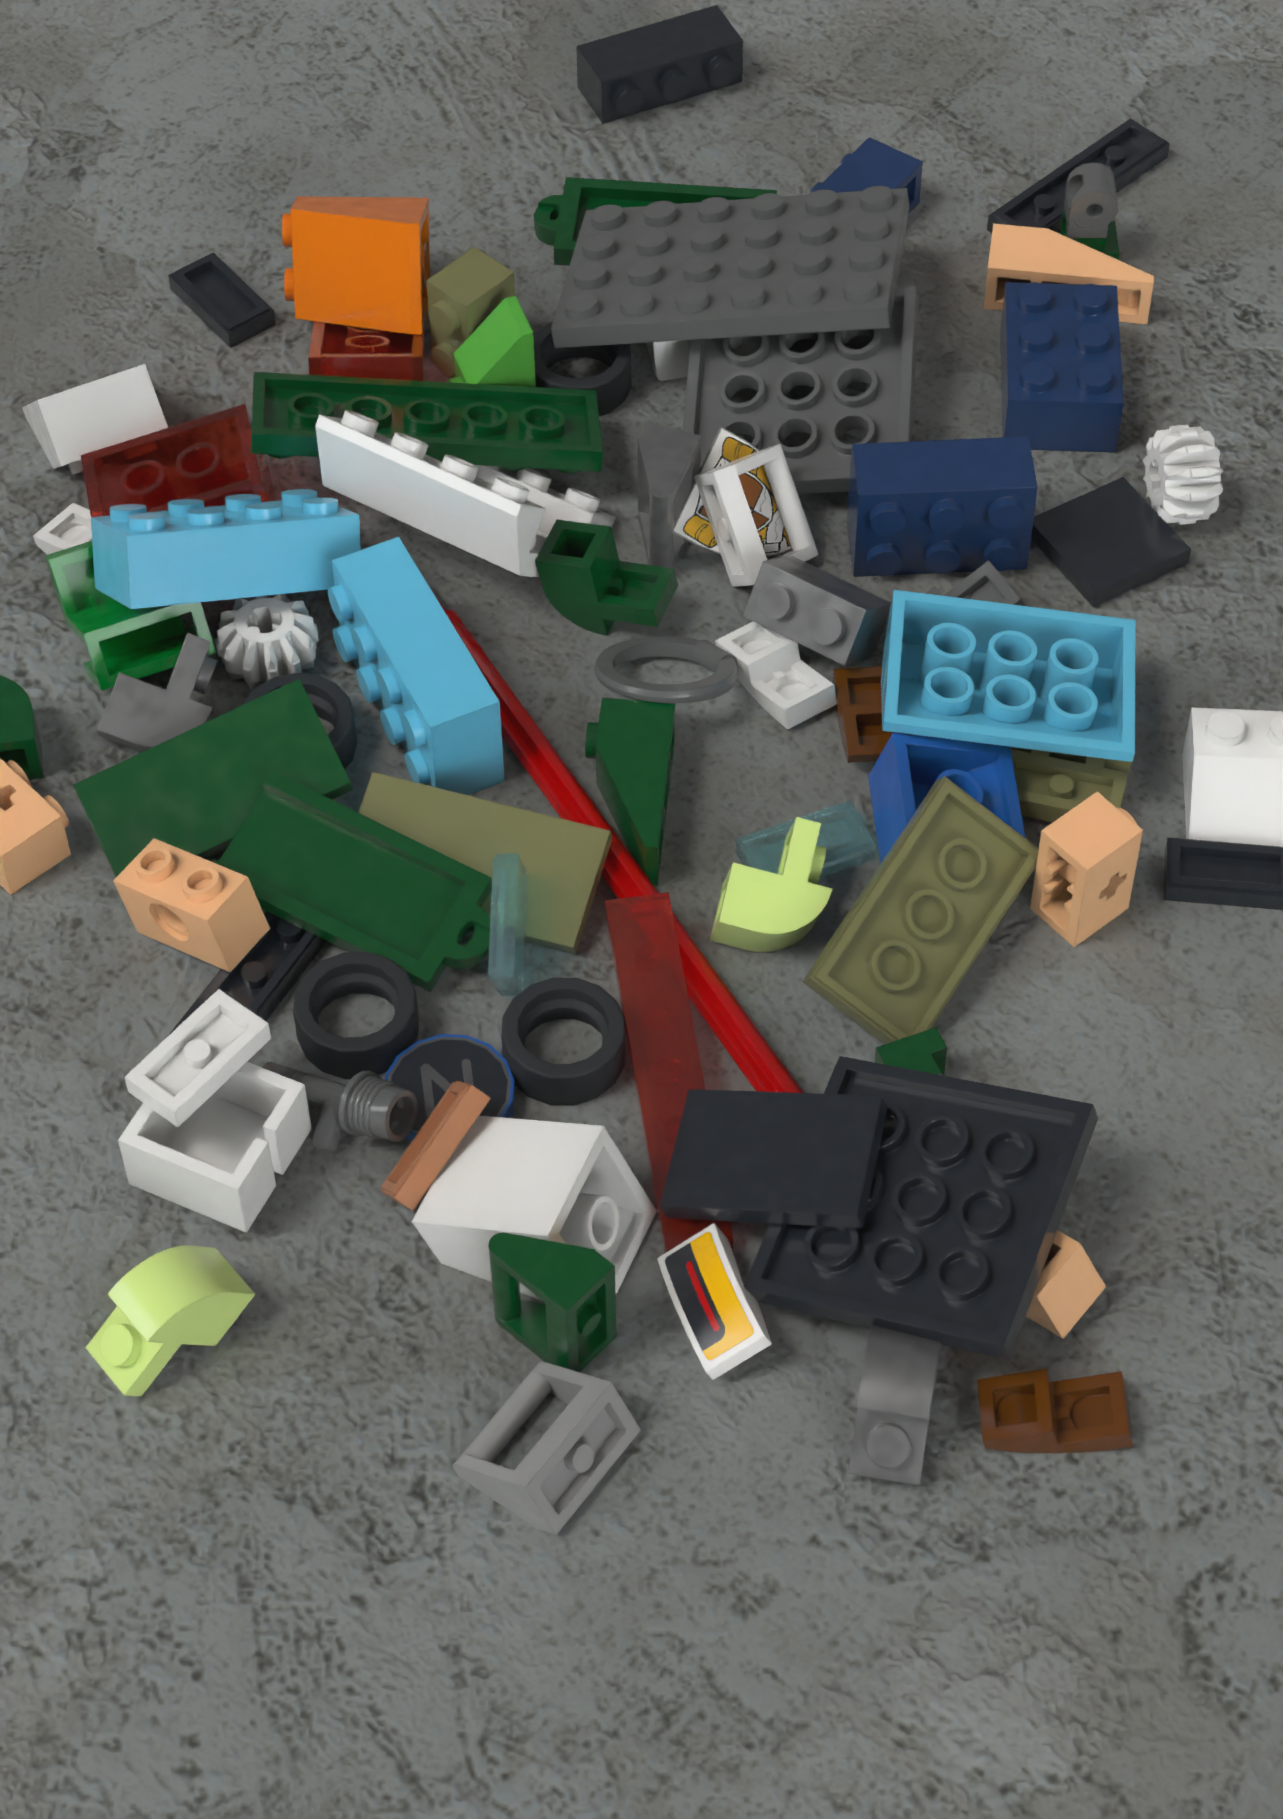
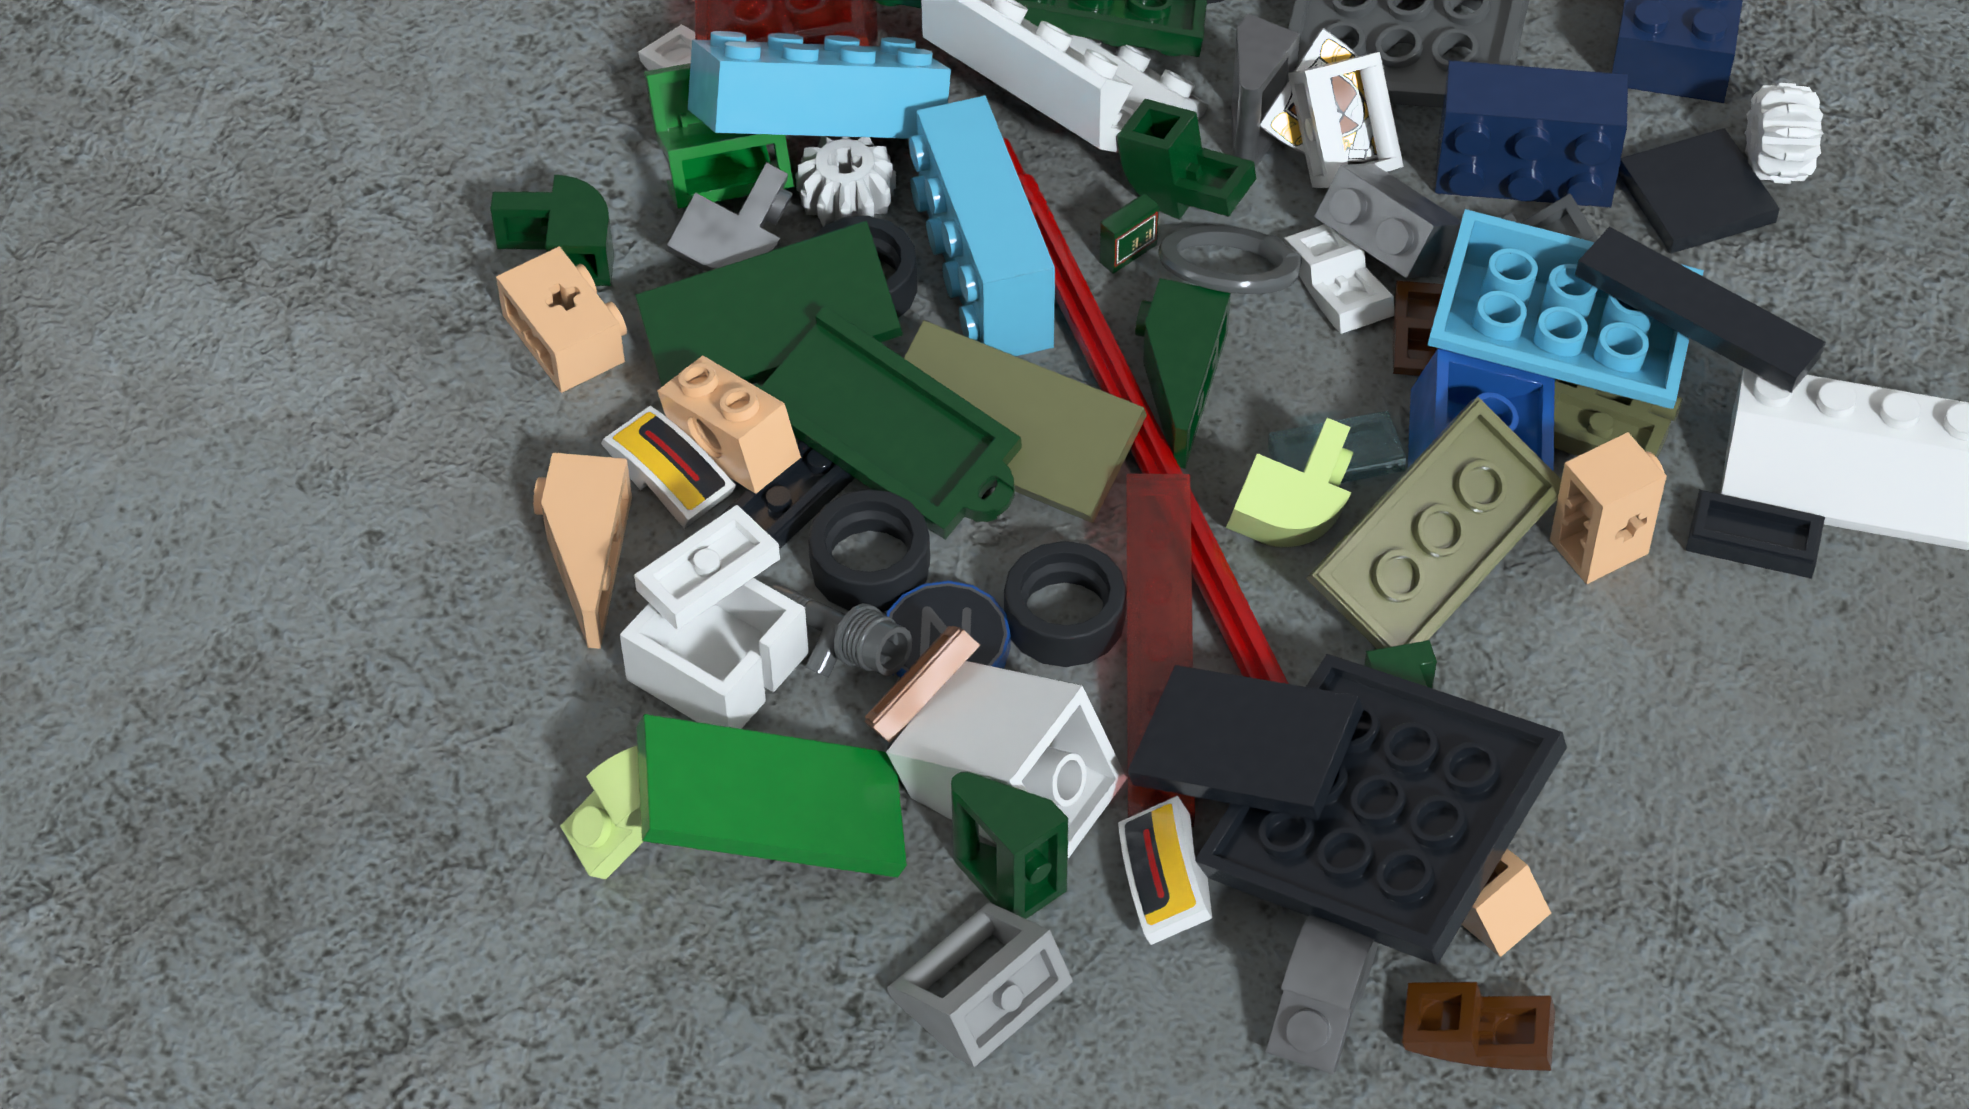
camera: 10 degrees right, 0 degrees up
(58, 1029) = (585, 522): none -> light nougat slope
(135, 952) = (670, 465): none -> slope
(299, 1286) = (769, 796): none -> green tile
(508, 924) = (1029, 483): clear light blue tile -> none
(561, 656) = (1128, 233): none -> dark green tile
(1141, 659) = (1700, 309): none -> black tile

